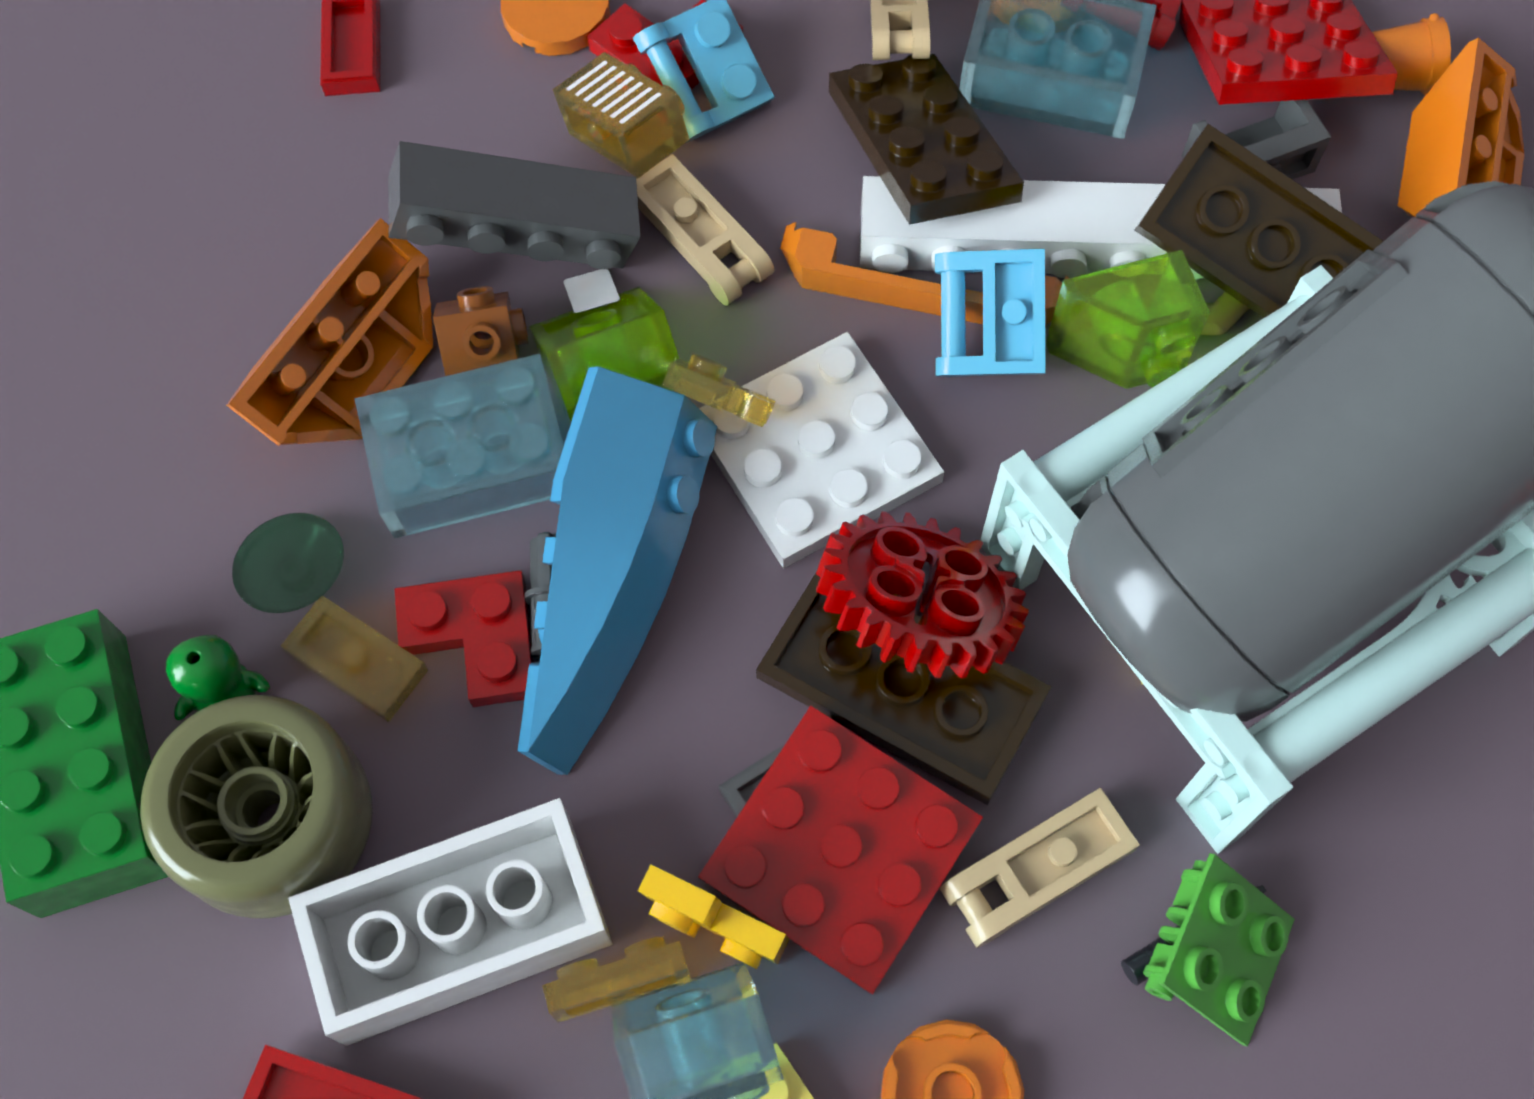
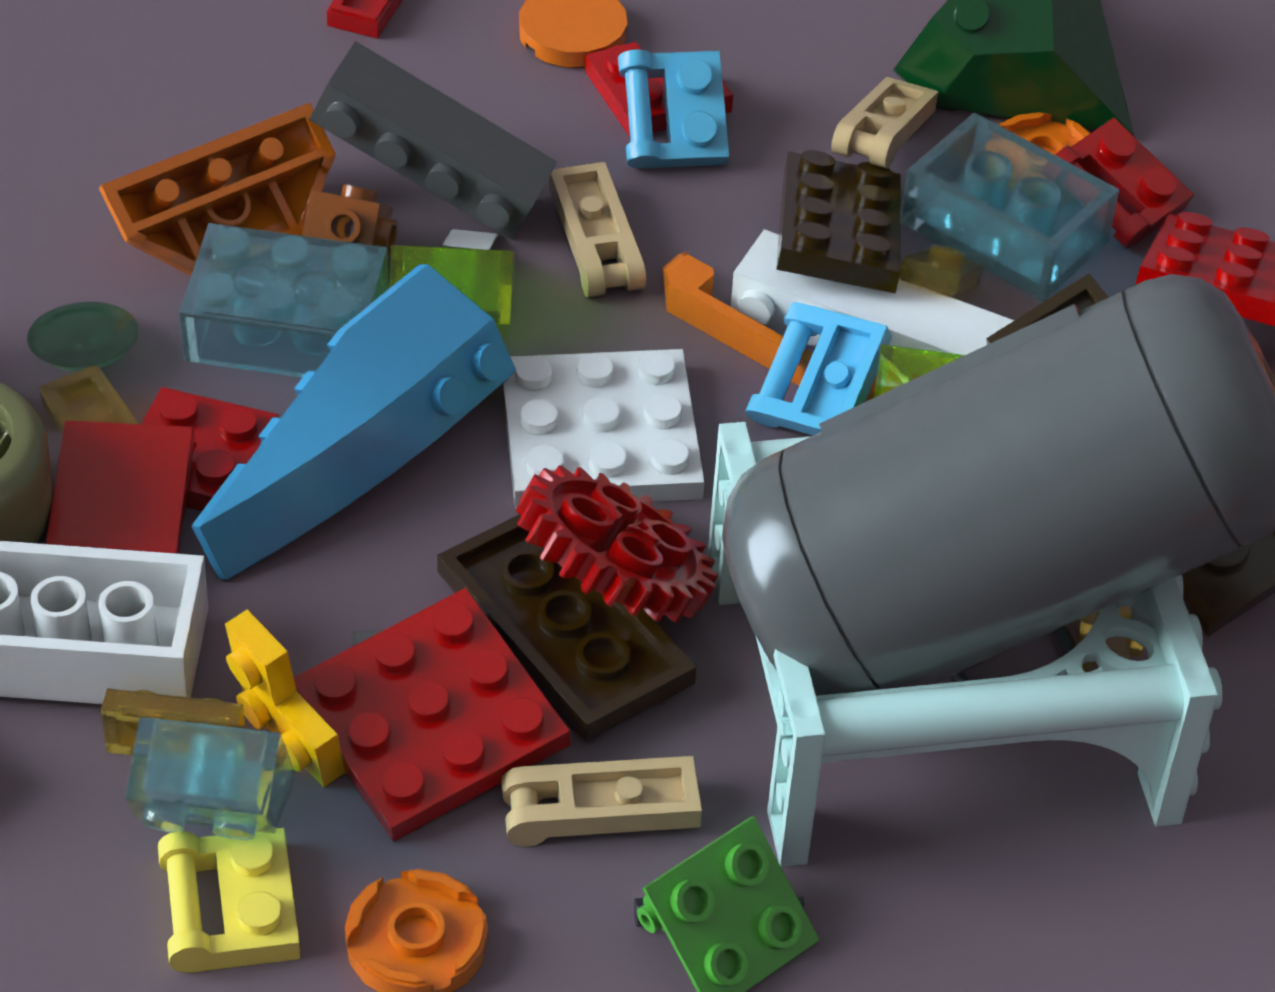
camera: 20 degrees right, 20 degrees down
(429, 748) = (121, 486): none -> red tile
(622, 114) = (576, 115): clear yellow brick -> none
(705, 382) = (521, 321): clear yellow plate -> none
(1037, 151) = (941, 270): none -> clear yellow plate

